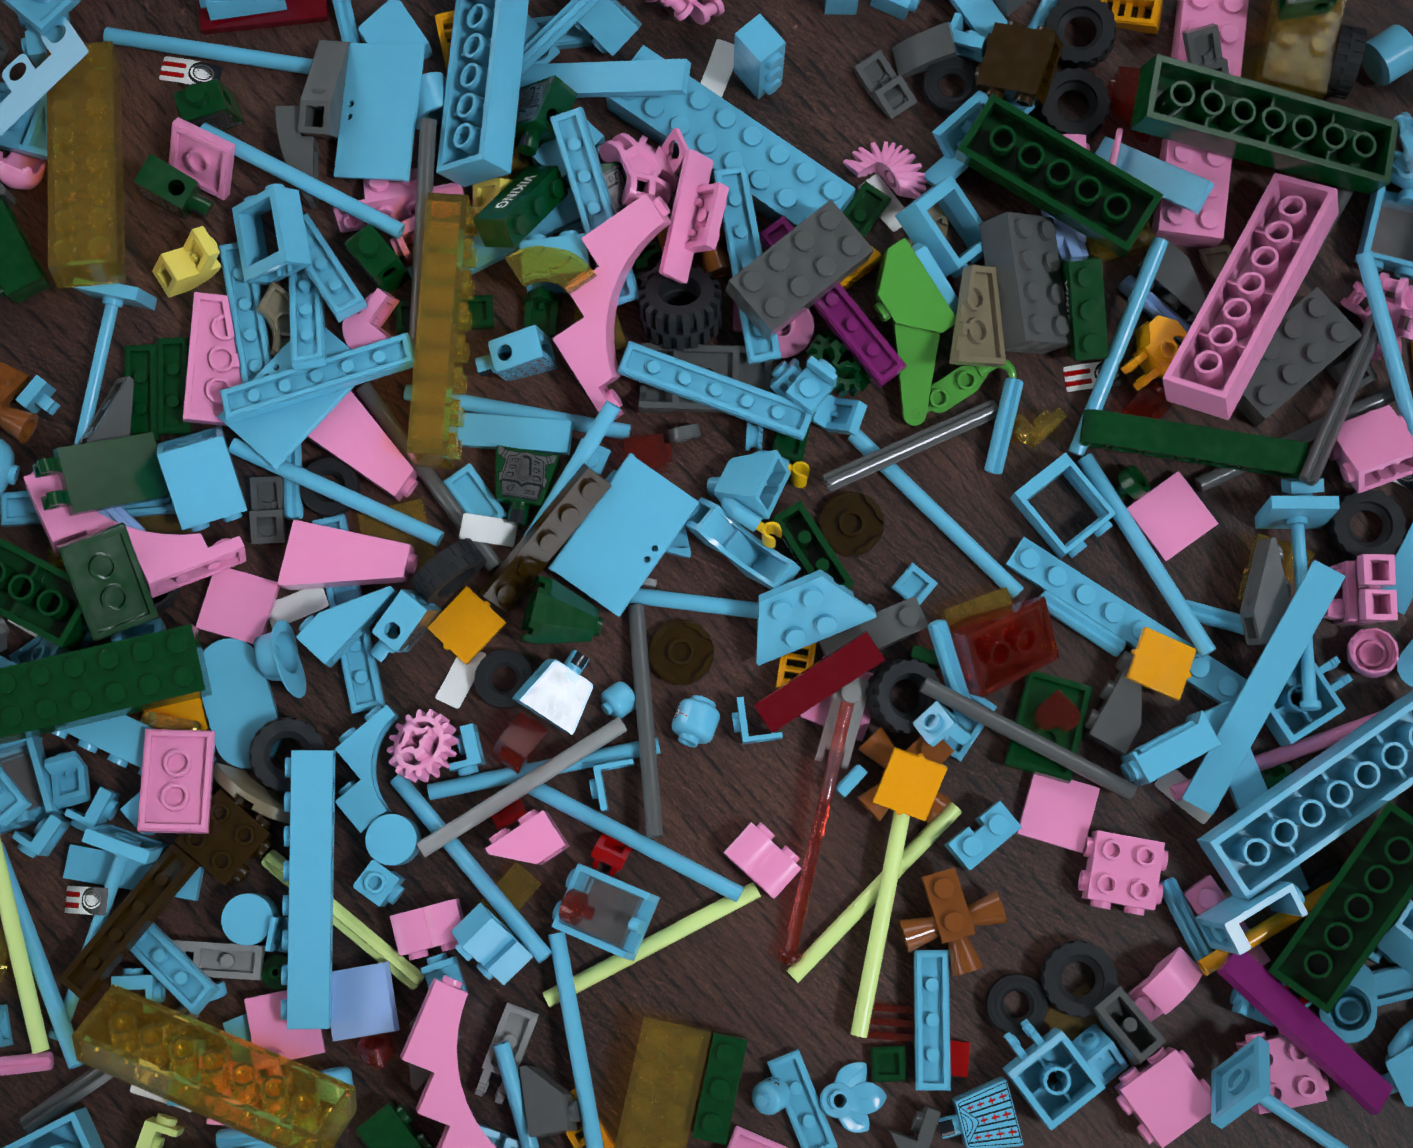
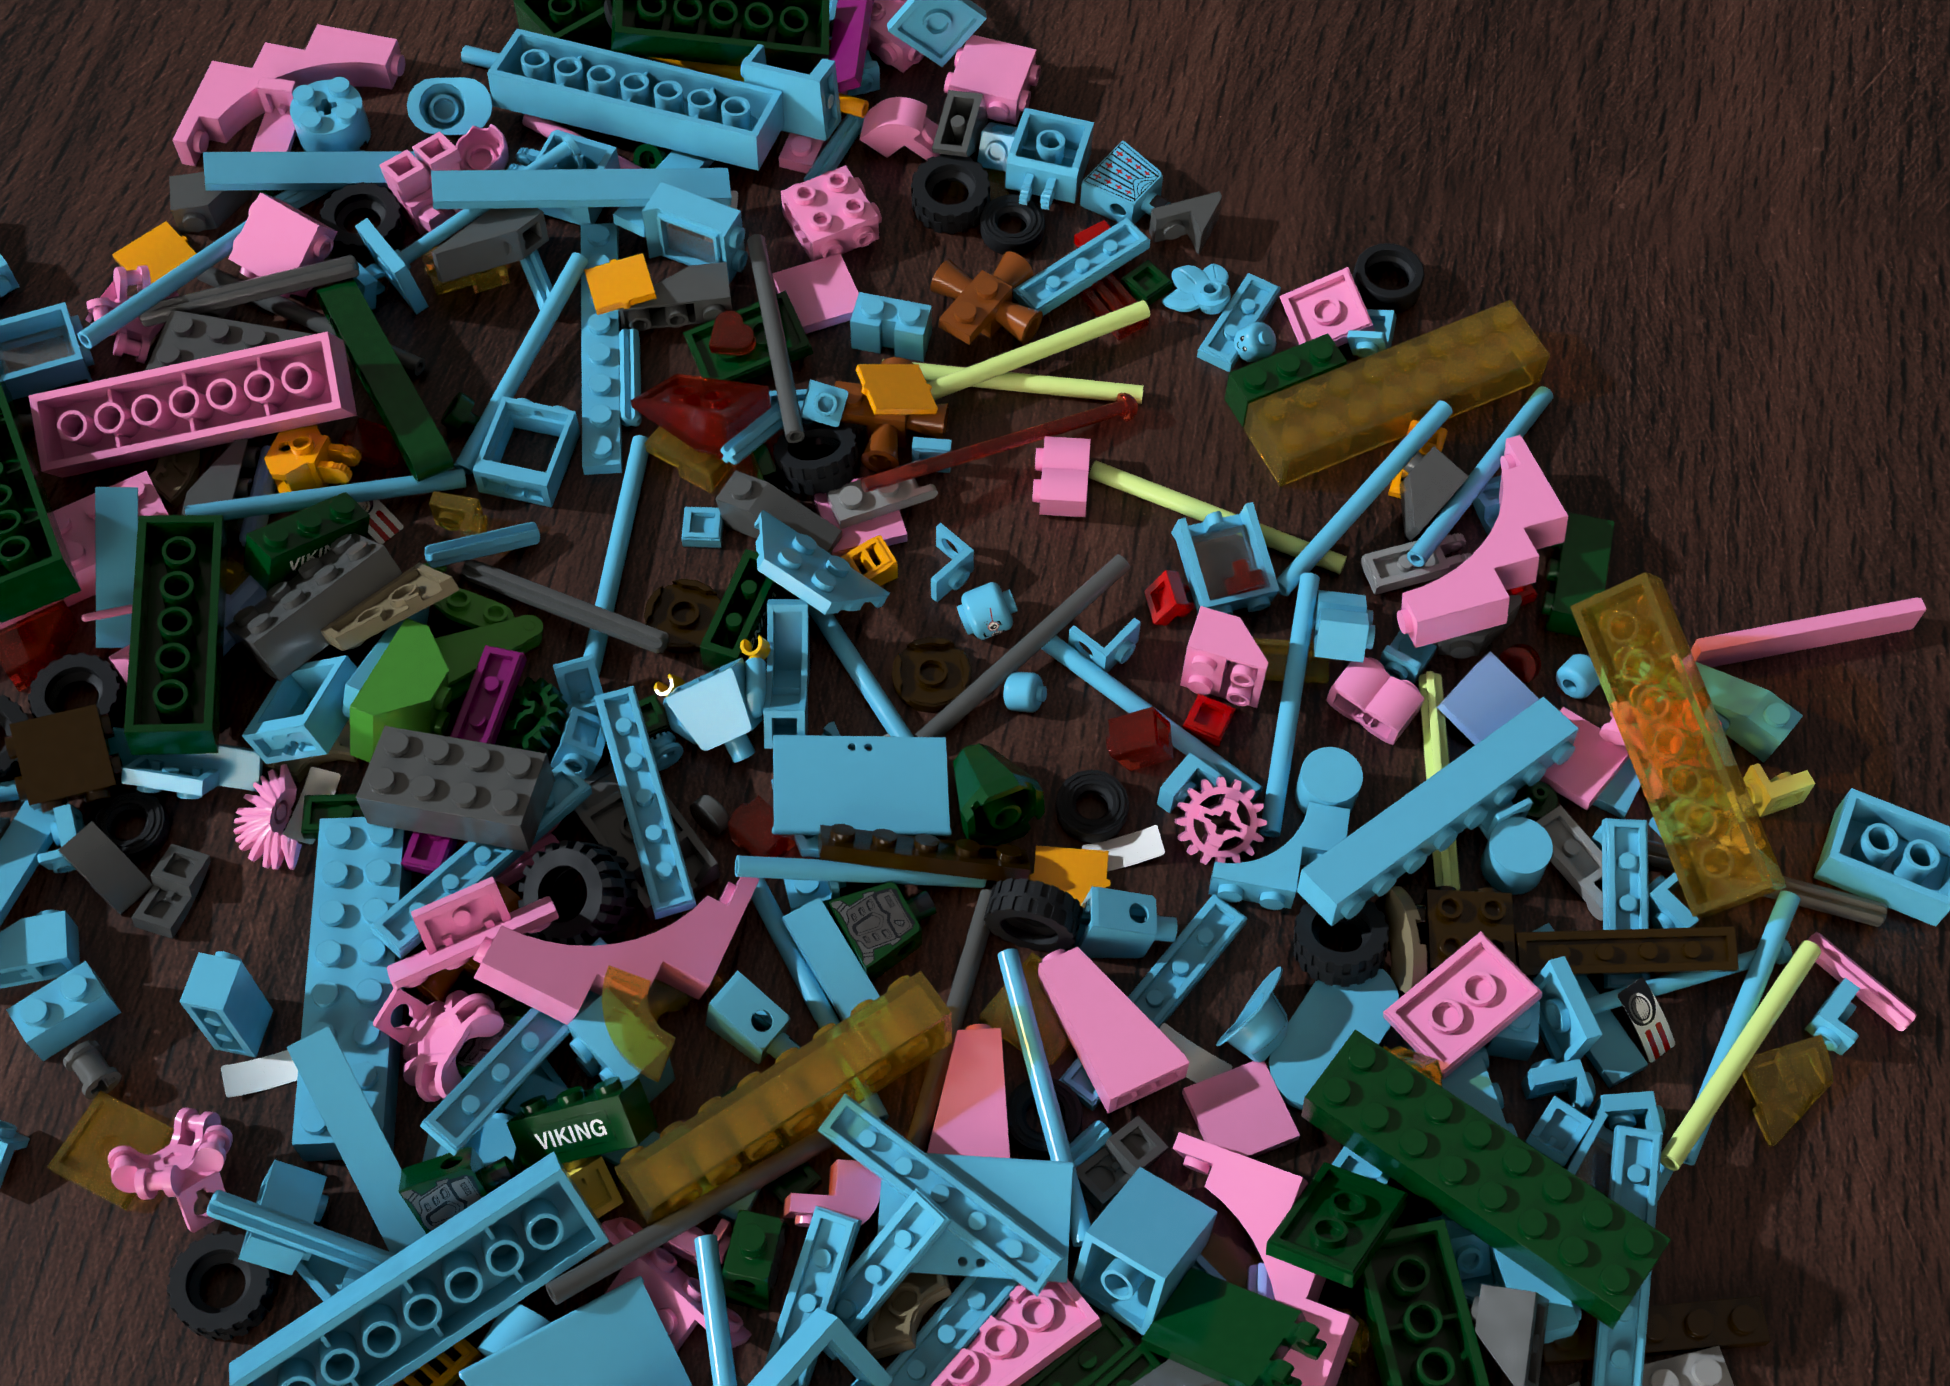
camera: 130 degrees left, 20 degrees down
(339, 627) = (1176, 979): medium azure slope -> none
(380, 884) = (1380, 758): medium azure bracket -> none
(473, 493) = (940, 956): medium azure tile -> none
(487, 530) = (958, 921): white sticker -> none
(521, 787) = (1179, 706): light grey piece -> none
(542, 310) = (693, 1046): dark green tile -> none
(557, 692) = (1063, 740): torso -> none
(638, 842) = (1140, 590): medium azure piece -> none
(813, 385) = (571, 705): medium azure bracket -> none
(819, 681) = (863, 524): dark red tile -> none
(1171, 516) = (466, 366): bright pink tile -> none

